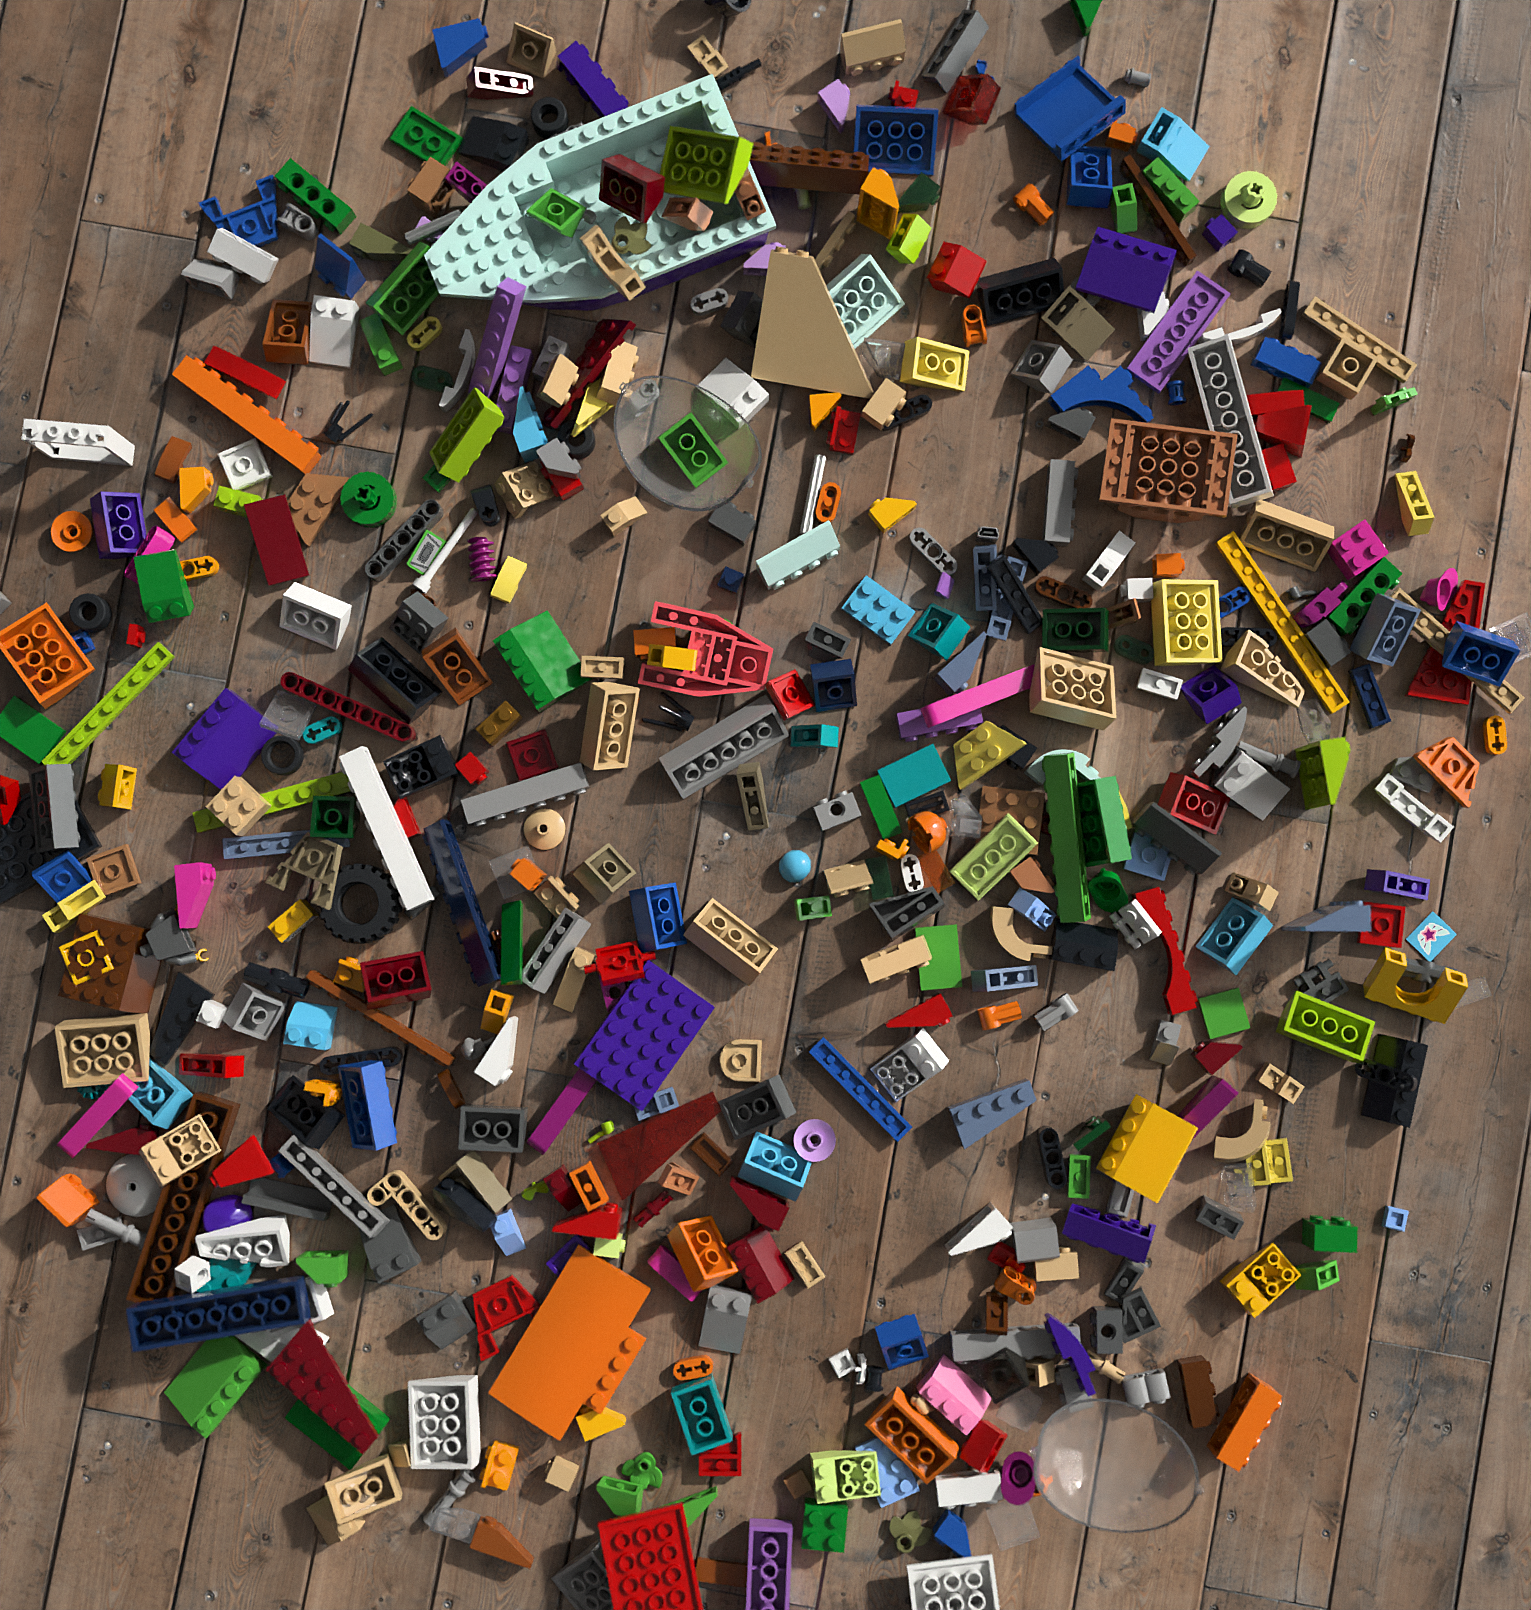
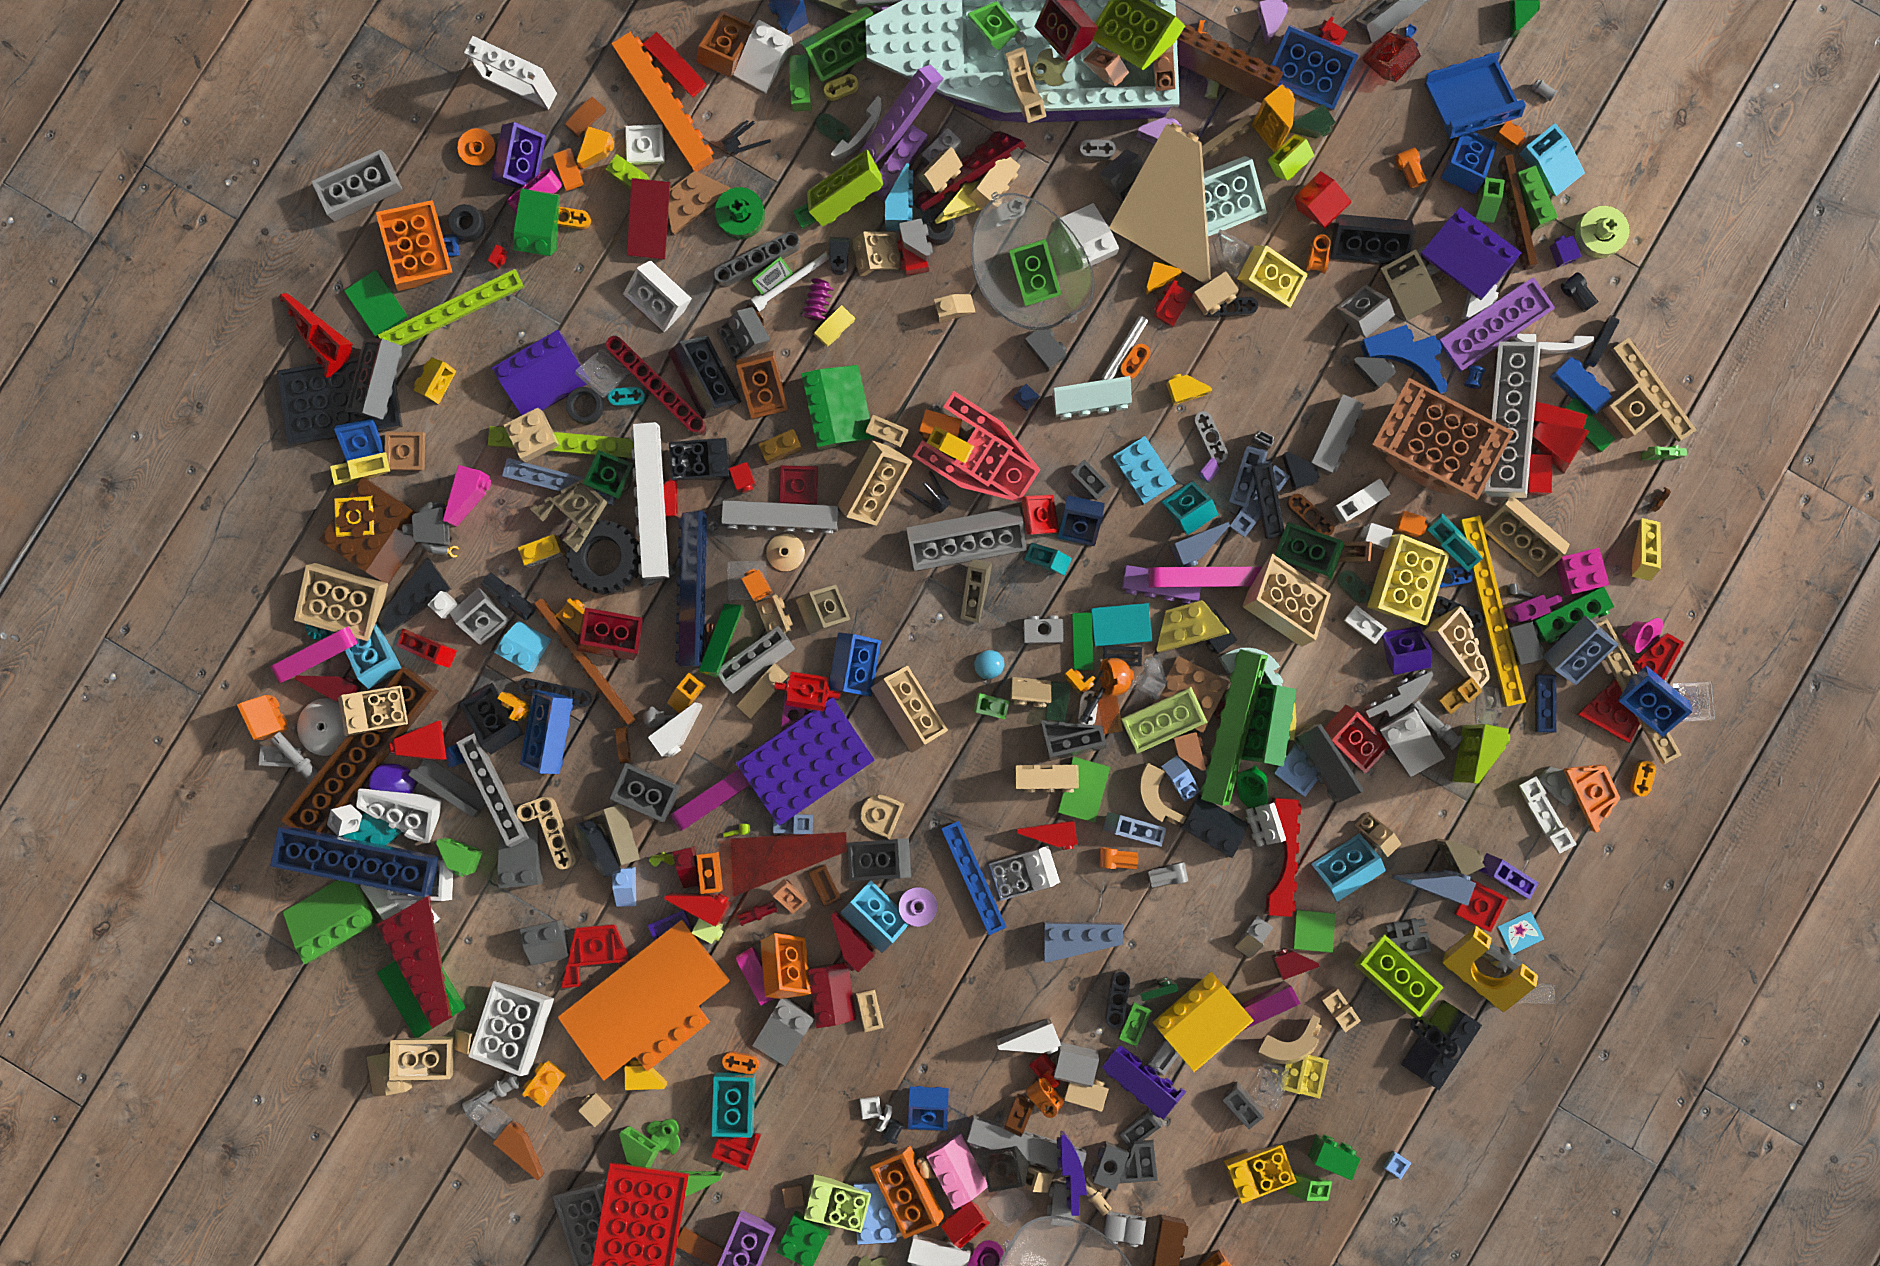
camera: 25 degrees right, 0 degrees up
(914, 868) = (1091, 705): none -> black wheel
(1218, 567) = (1454, 542): none -> teal slope
(1279, 720) = (1459, 694): none -> pearl gold slope
(1343, 885) = (1460, 857): none -> dark tan slope

